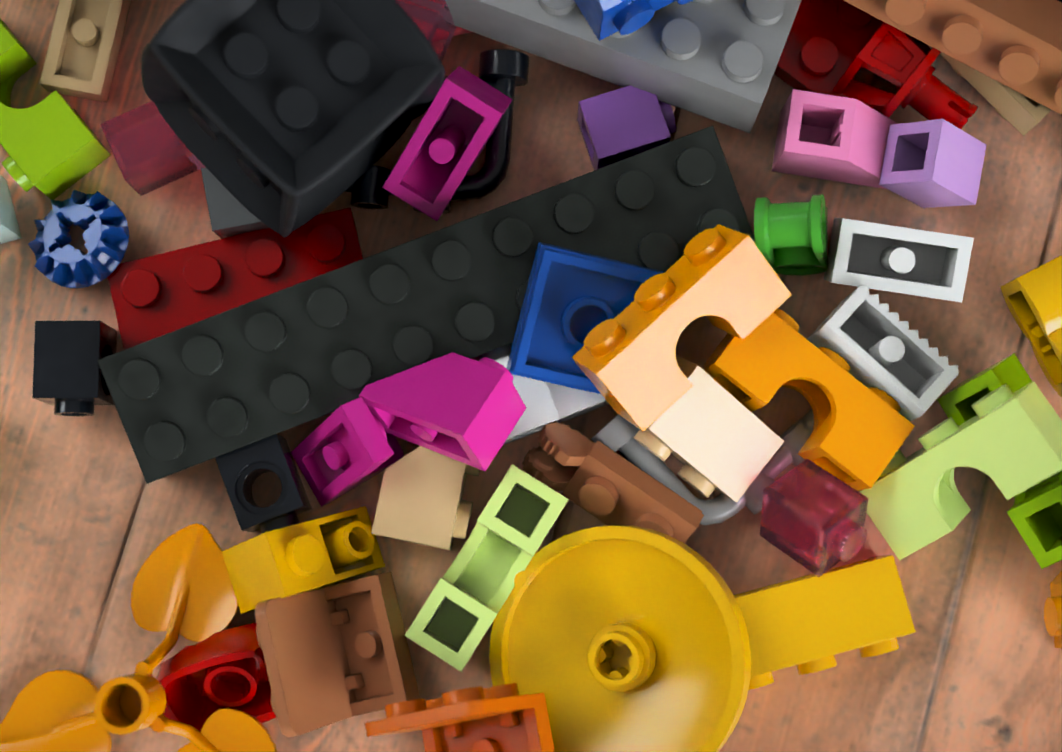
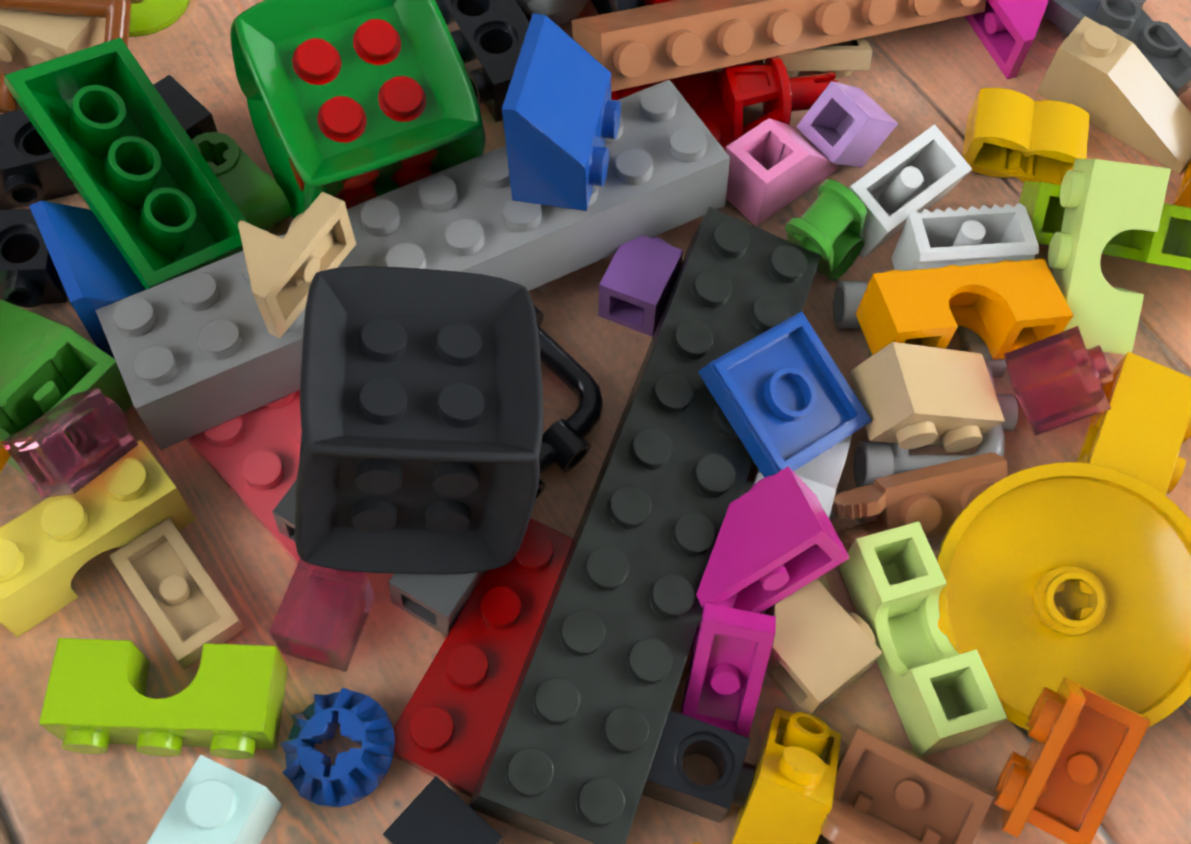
camera: 50 degrees left, 20 degrees down
(447, 142) = (567, 401): dark pink slope -> none
(635, 352) = (850, 370): arch -> none

